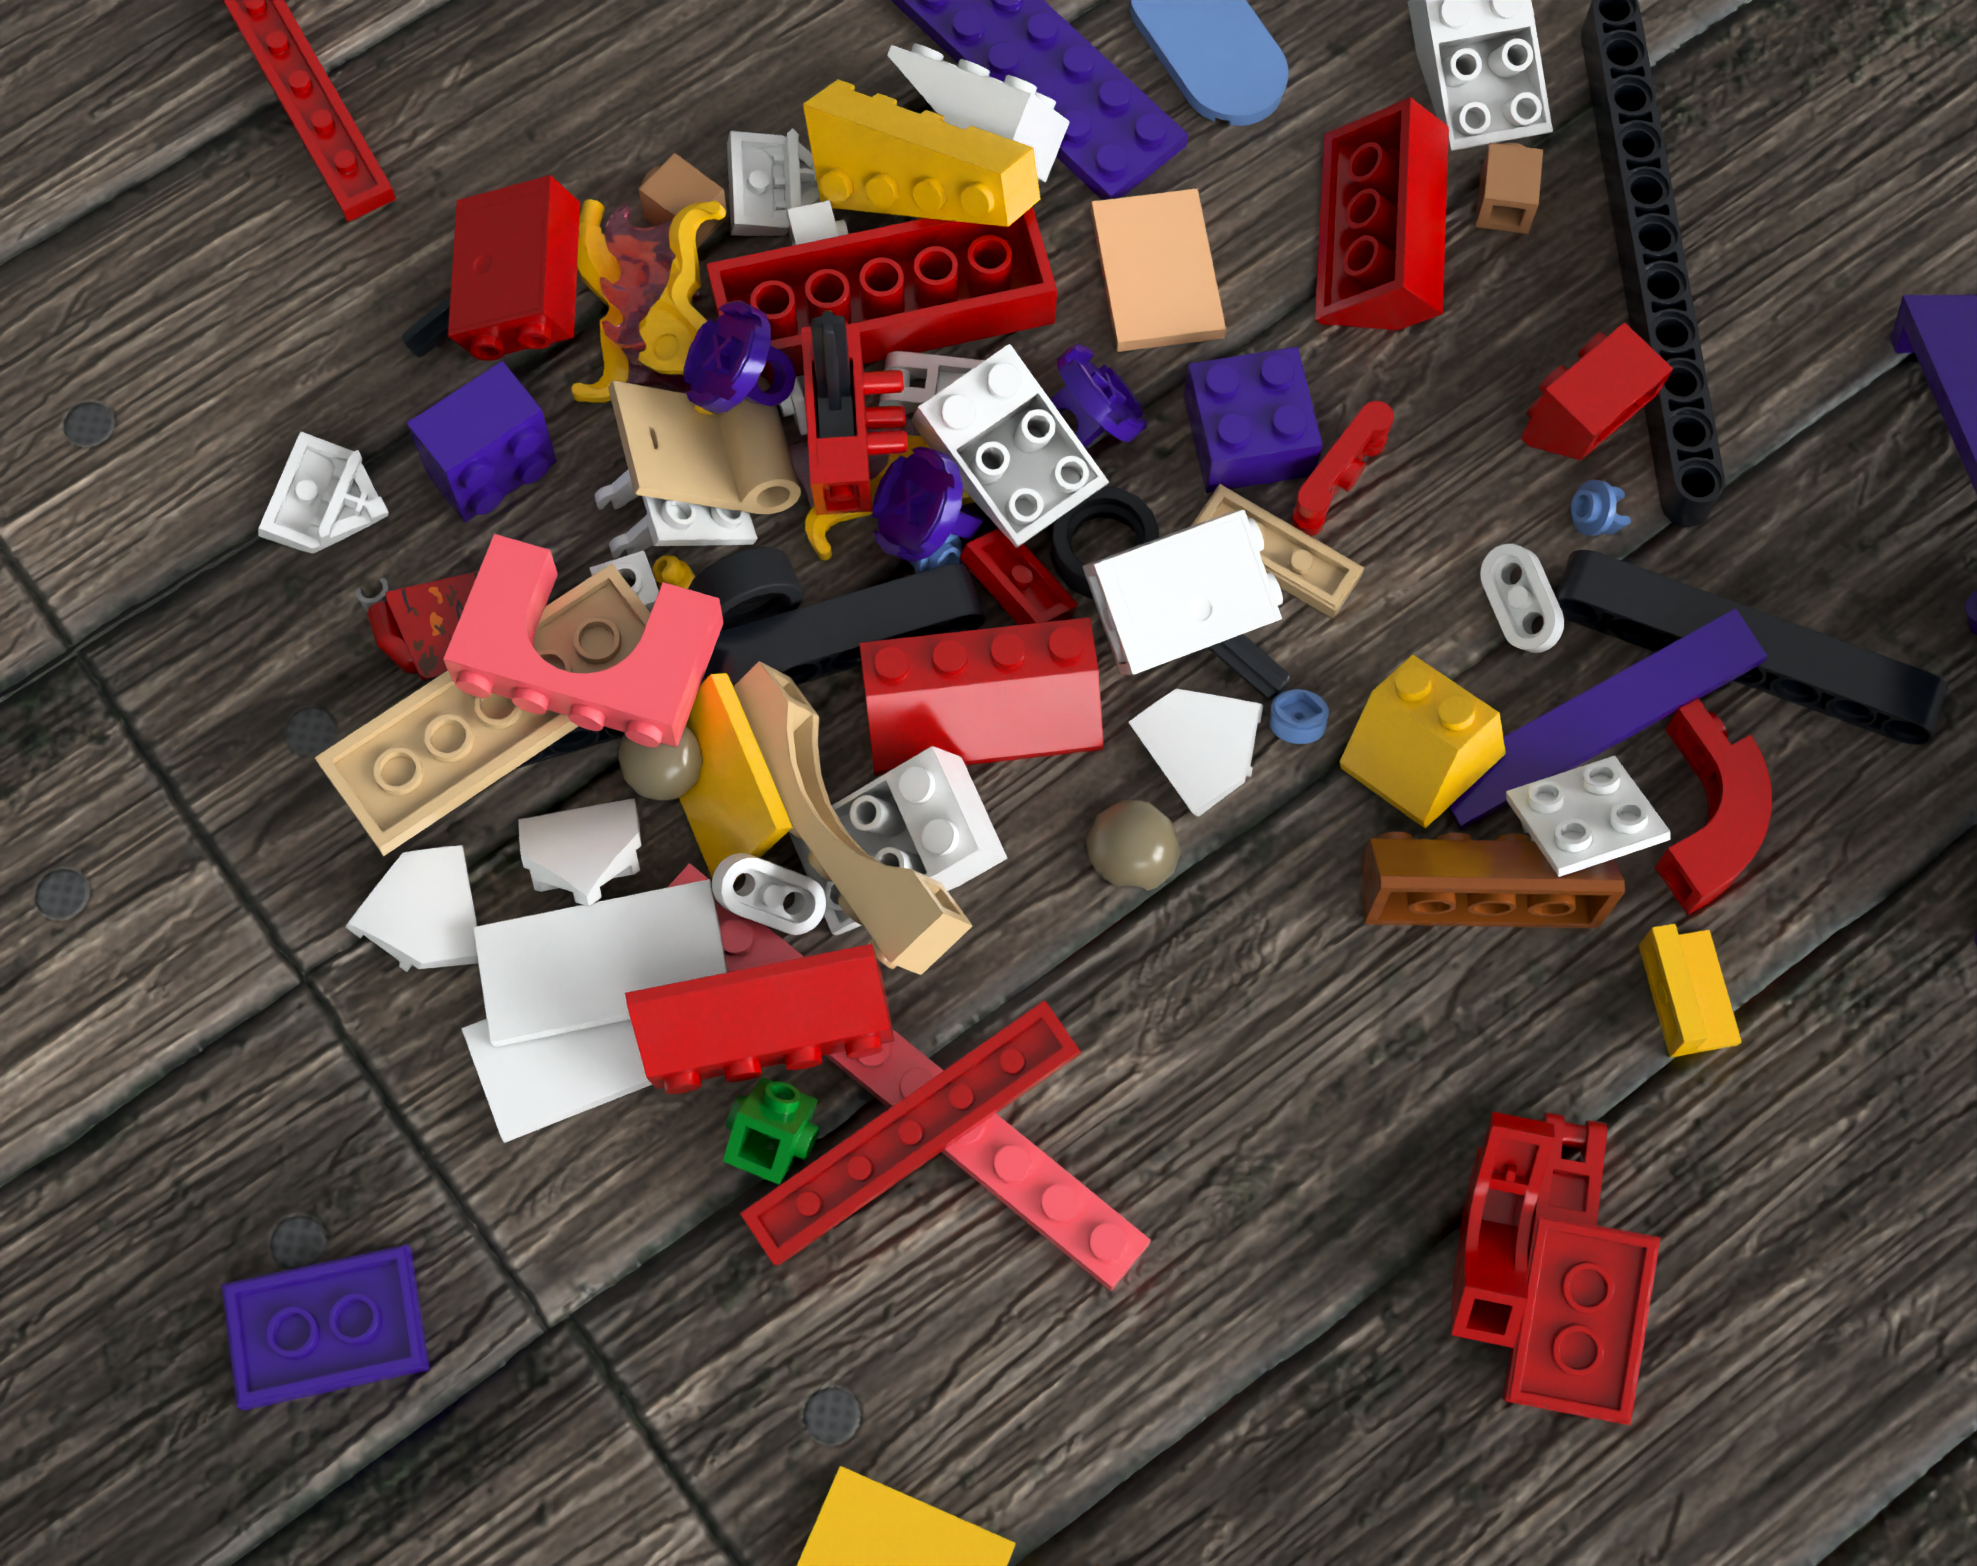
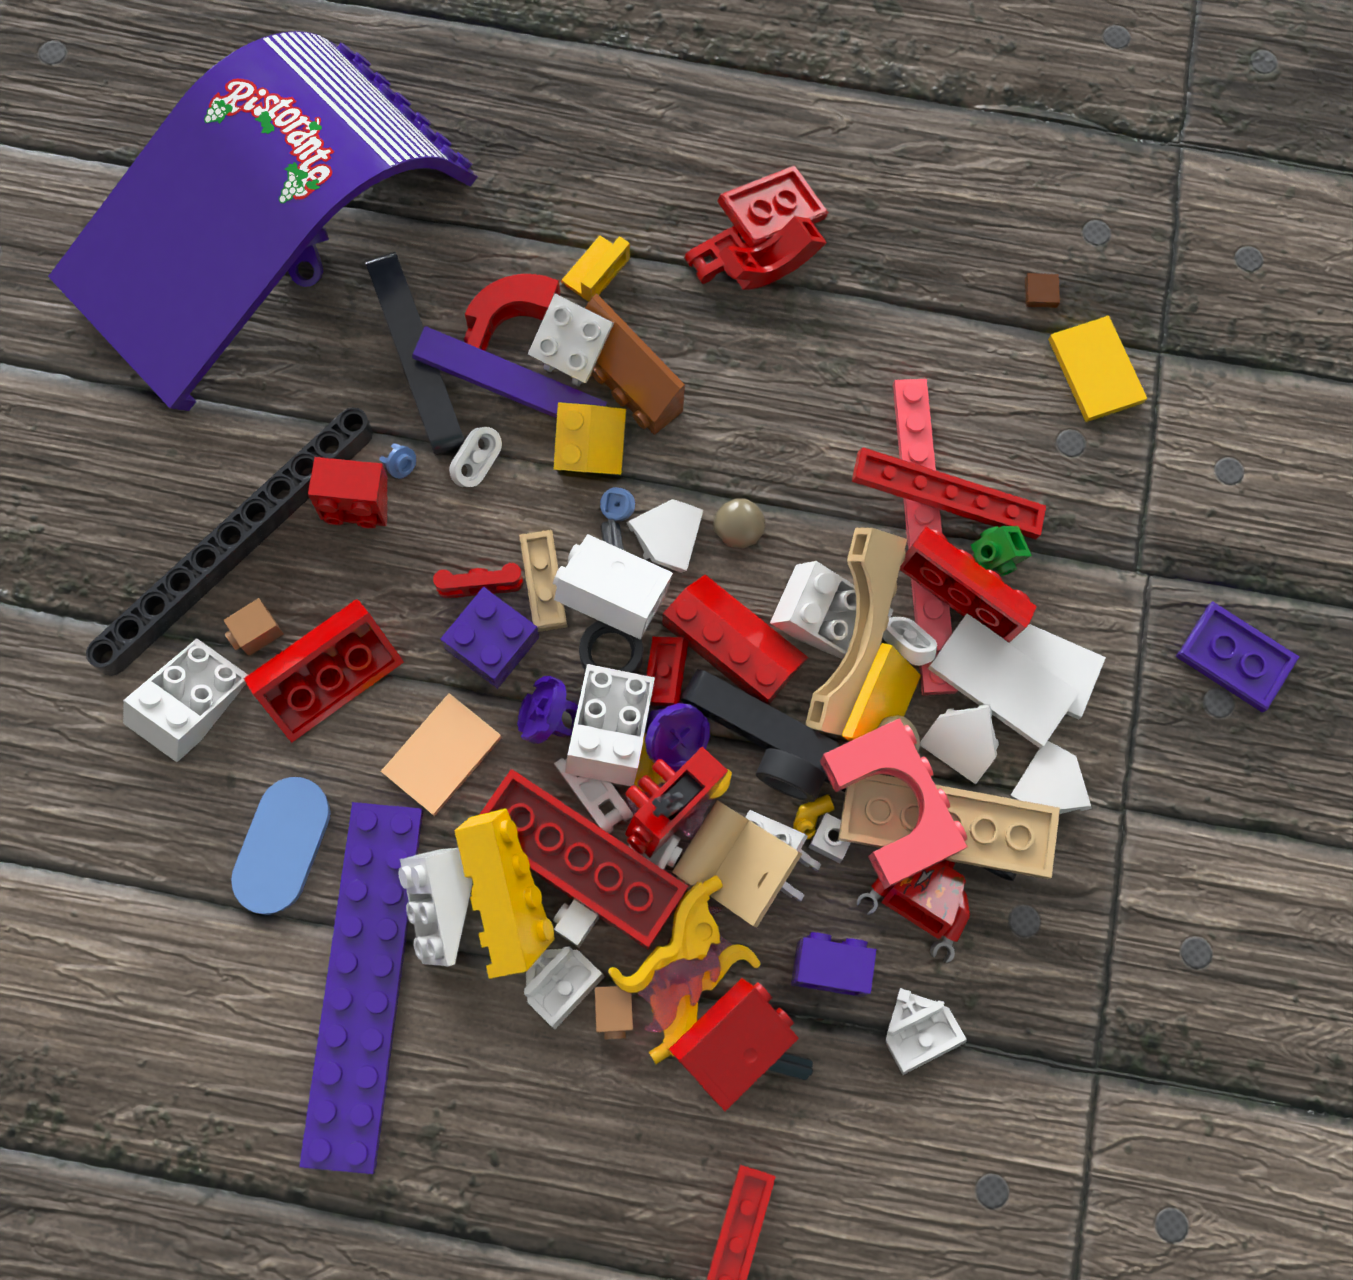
camera: 135 degrees left, 5 degrees up
(729, 358) = (695, 874): dark purple tile -> none

